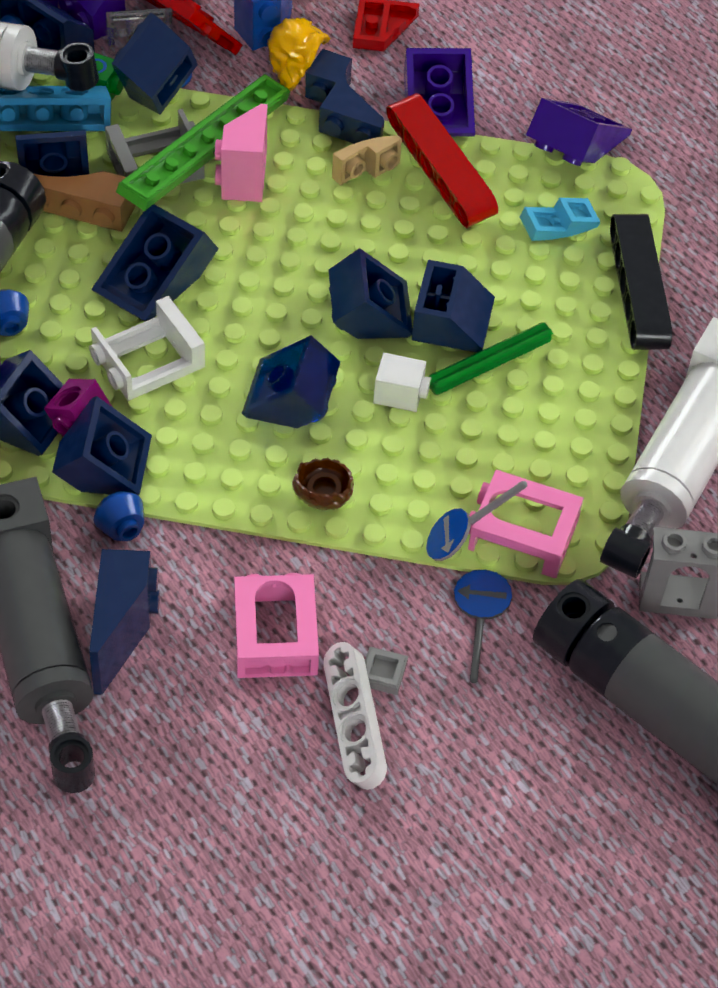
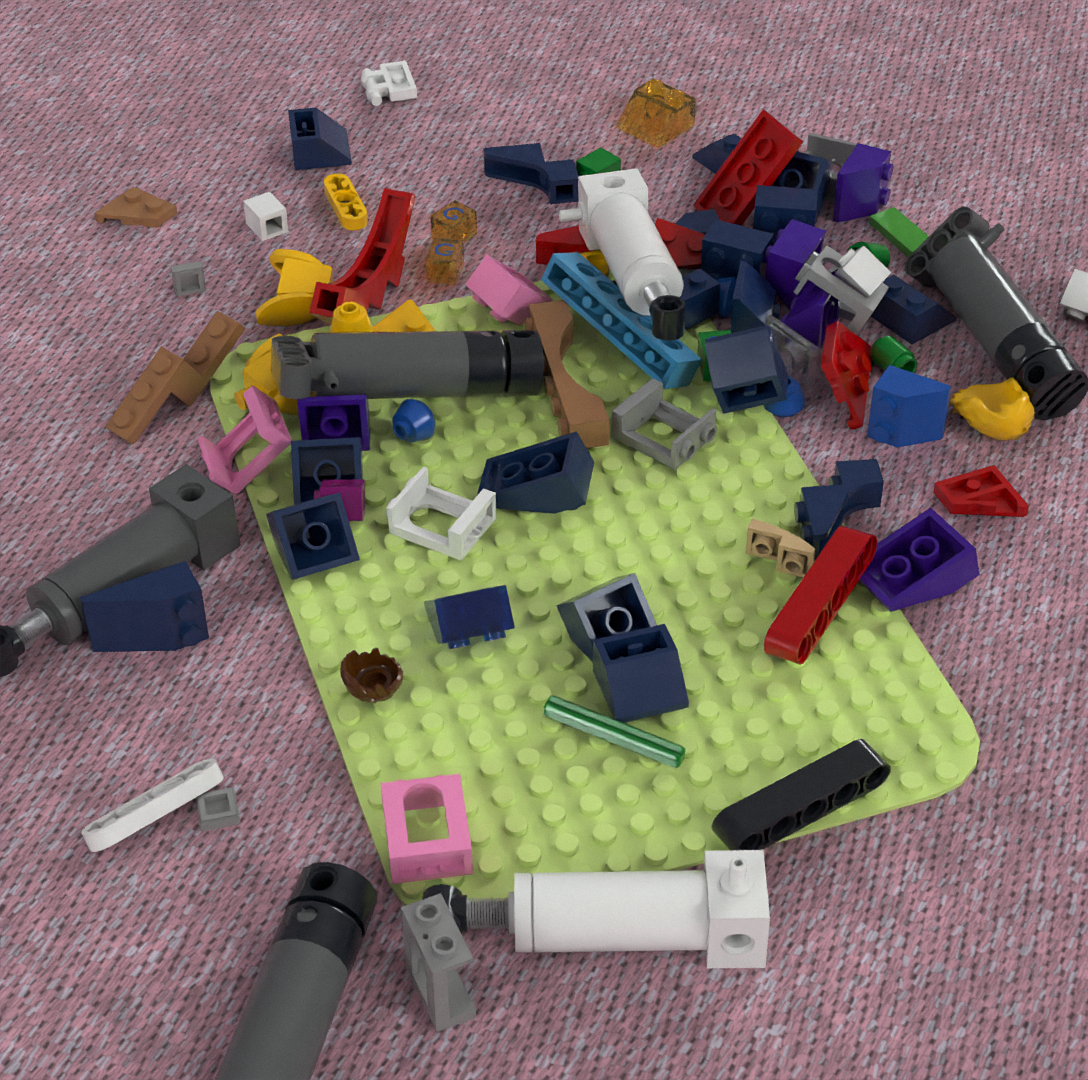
camera: 65 degrees right, 10 degrees down
(54, 153) = (598, 368): dark blue slope -> none
(120, 516) = (263, 578): blue cone -> none
(196, 146) = (690, 437): bright green tile -> none
(243, 156) = (699, 468): bright pink slope -> none
(276, 659) = (191, 741): bright pink panel -> none
(293, 49) = (871, 441): yellow piece -> none
(401, 382) = (527, 678): white brick -> none
(454, 526) = (384, 777): piece -> none
(481, 596) = (338, 843): blue piece -> none
(566, 219) = (835, 714): medium azure slope -> none
(574, 131) = (966, 675): dark purple slope -> none

